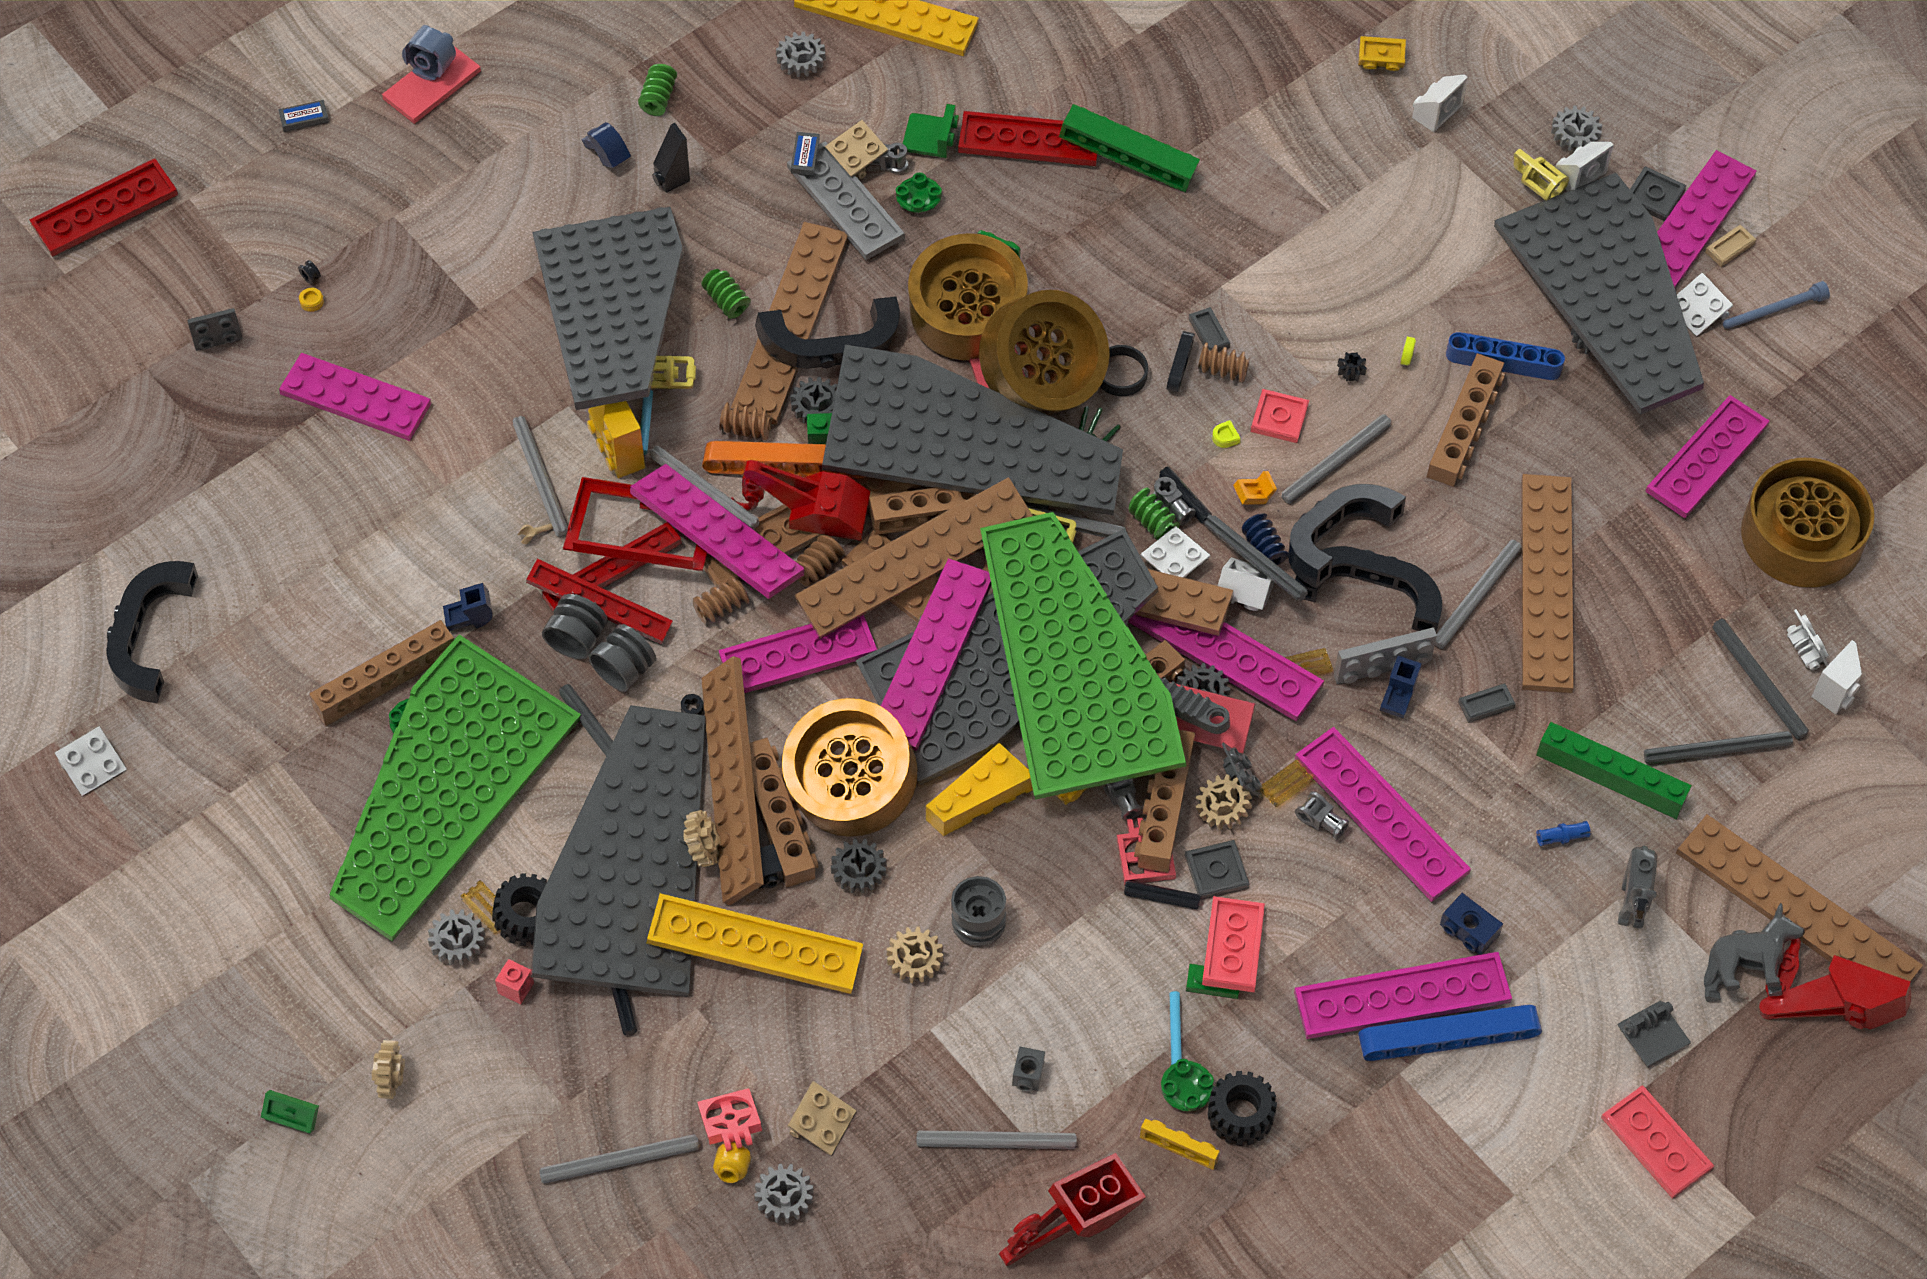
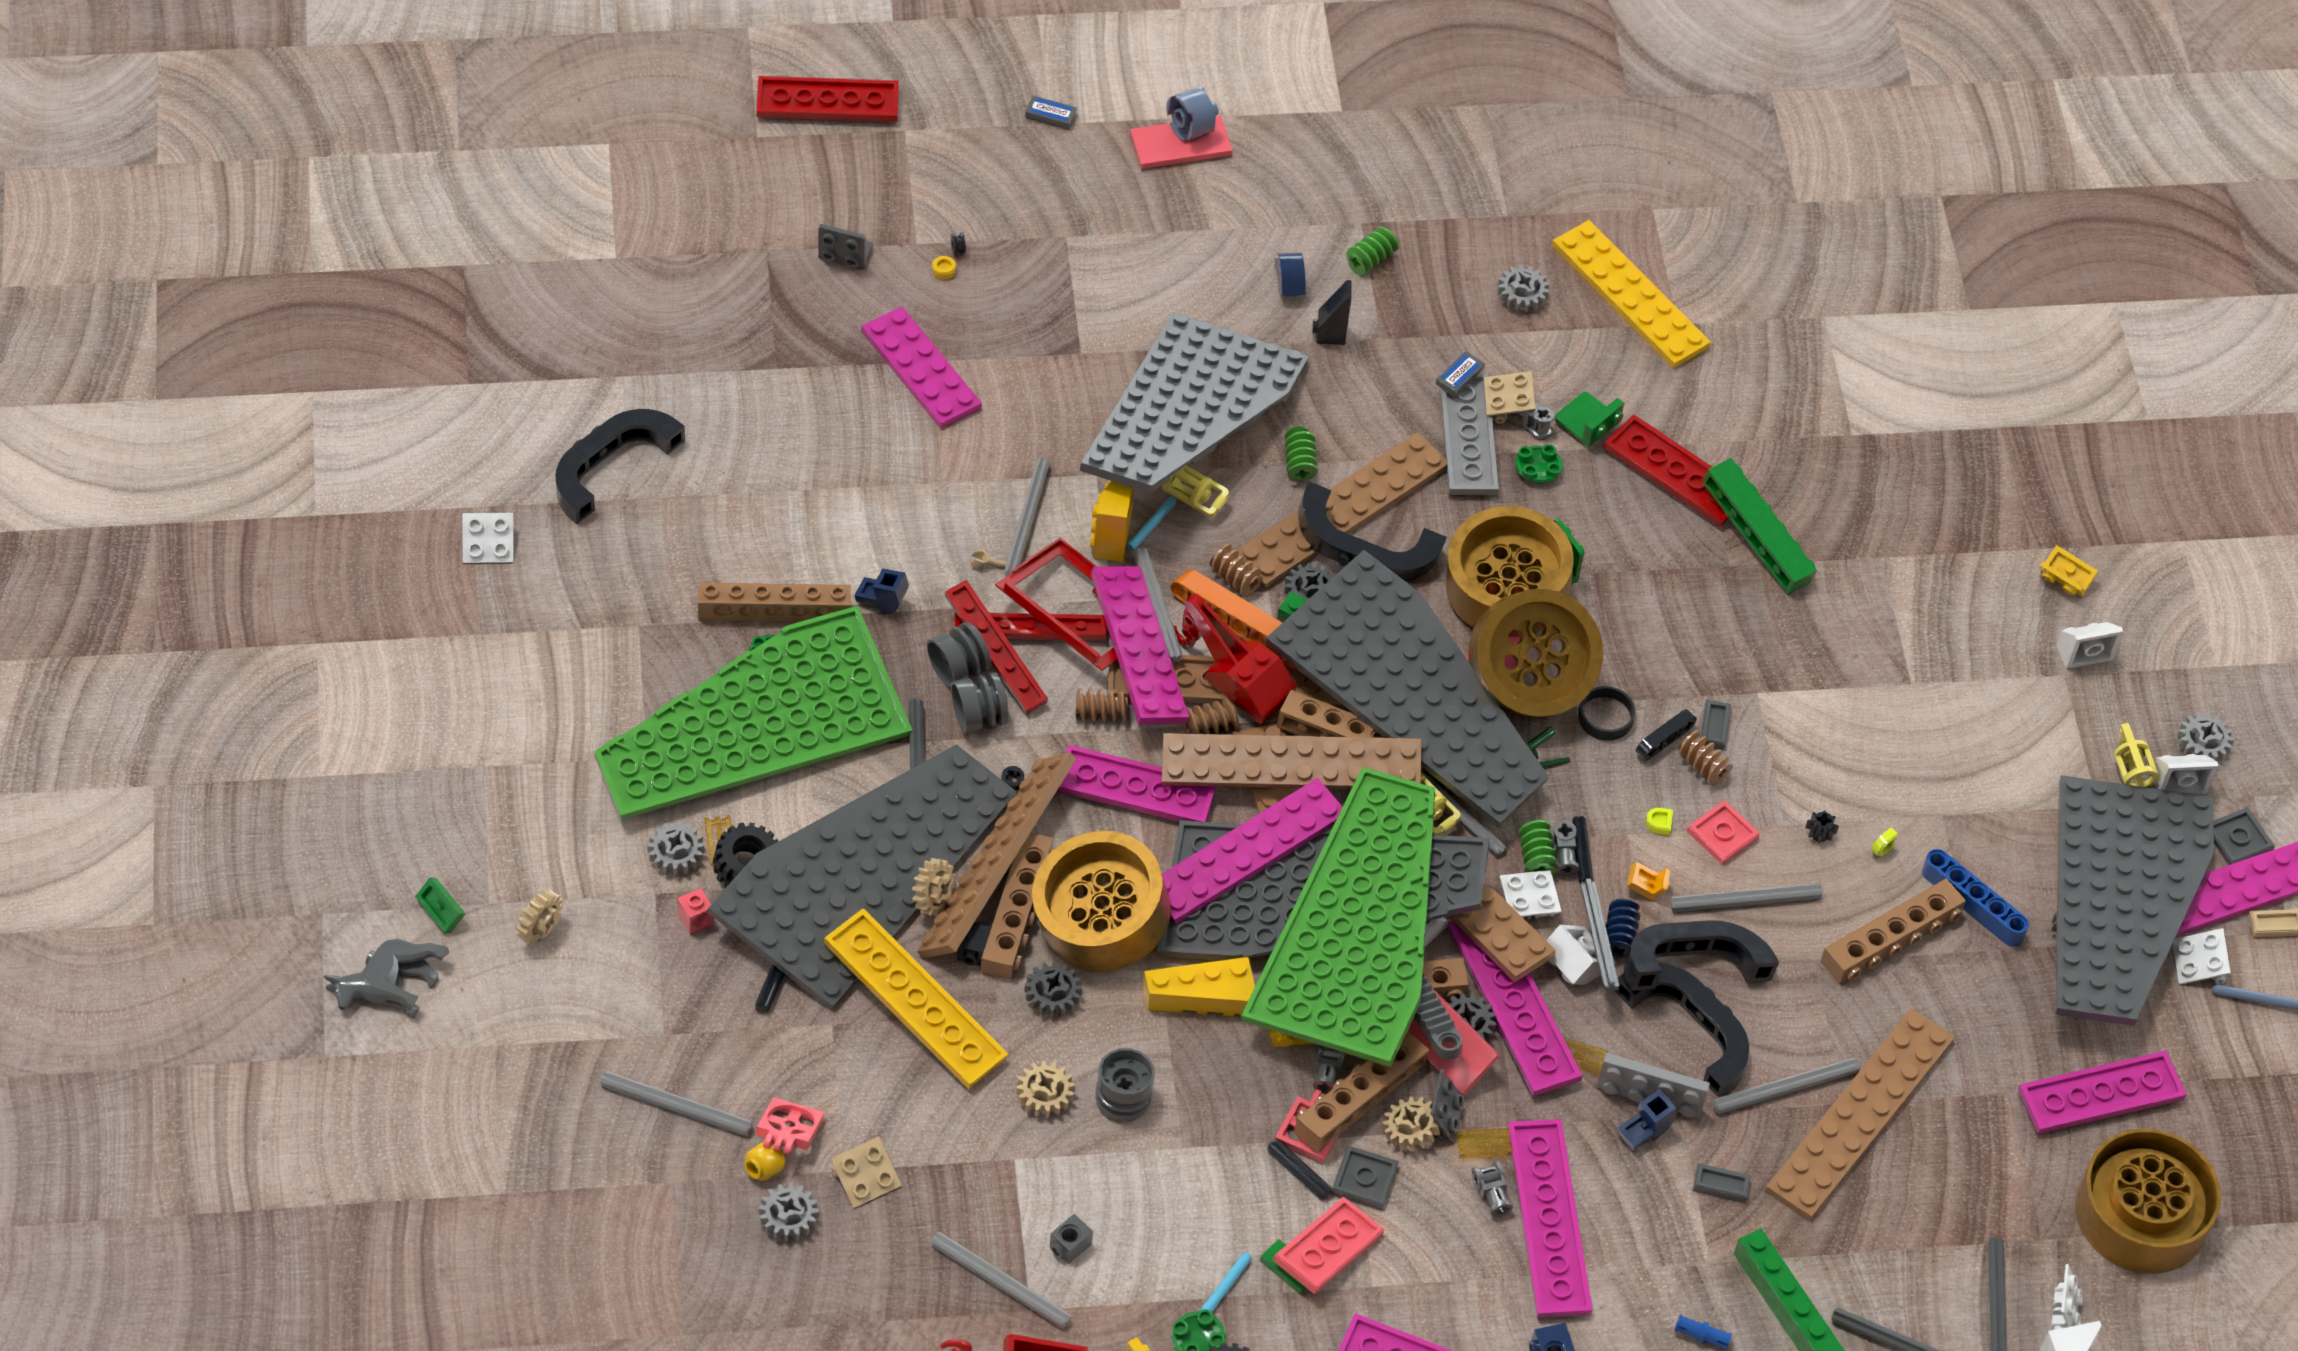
camera: 30 degrees right, 5 degrees down
(284, 1207) = (381, 978): none -> dark grey animal

